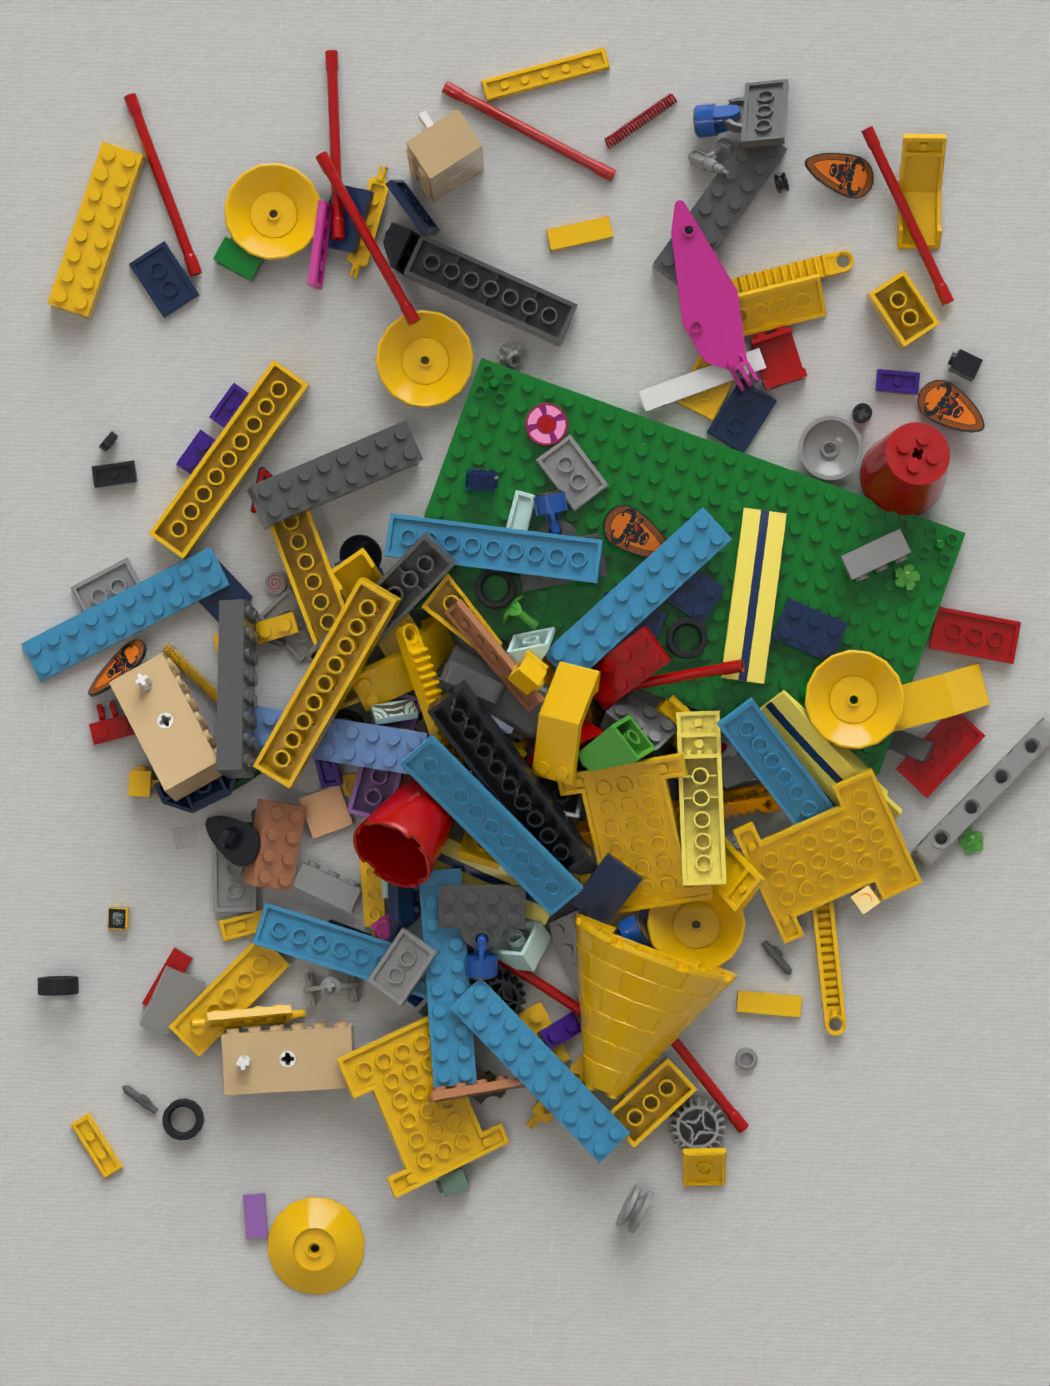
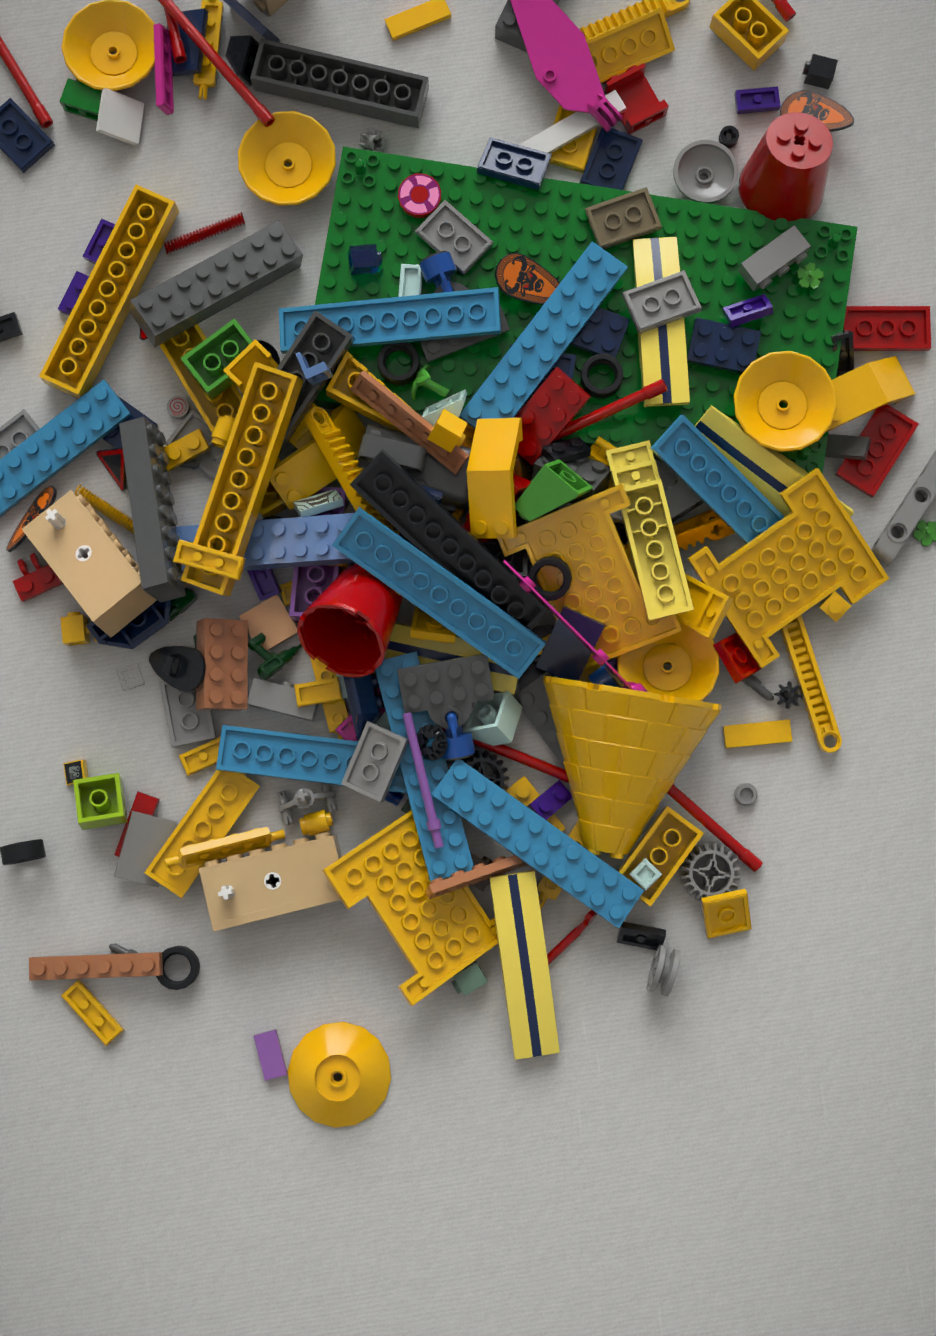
camera: 10 degrees left, 5 degrees down
(107, 1104) = (95, 966): none -> nougat plate
(138, 951) = (100, 801): none -> lime brick
(207, 629) = (114, 463): none -> piece
(269, 284) = (120, 117): none -> white tile
(283, 753) = (209, 559): none -> yellow tile
(317, 624) = (222, 431): none -> yellow brick
(324, 552) = (214, 355): none -> bright green brick
(324, 850) = (273, 661): none -> dark green piece
(336, 1009) = (316, 822): none -> yellow brick
(361, 888) = (318, 692): none -> yellow tile
(365, 408) = (206, 233): none -> red piece
(412, 599) = (315, 373): none -> medium blue panel
(446, 1035) = (433, 823): none -> medium lavender bar
(464, 965) = (438, 746): none -> black gear
(506, 1178) = (524, 964): none -> light yellow slope
(537, 1172) = (571, 937): none -> red piece
(592, 841) = (560, 564): none -> black tyre
(620, 1172) = (641, 935): none -> black plate
(628, 913) = (599, 656): none -> dark pink wing
(634, 1117) = (645, 874): none -> light aqua tile
(639, 704) = (566, 450): none -> black plate
(644, 407) = (514, 163): none -> dark blue tile
(738, 485) = (623, 218): none -> dark tan tile
(757, 580) = (661, 302): none -> light grey tile
(762, 930) = (736, 658): none -> red tile
(809, 970) = (785, 690): none -> black gear
(839, 601) = (748, 310): none -> dark purple plate
(928, 659) = (846, 356): none -> black plate

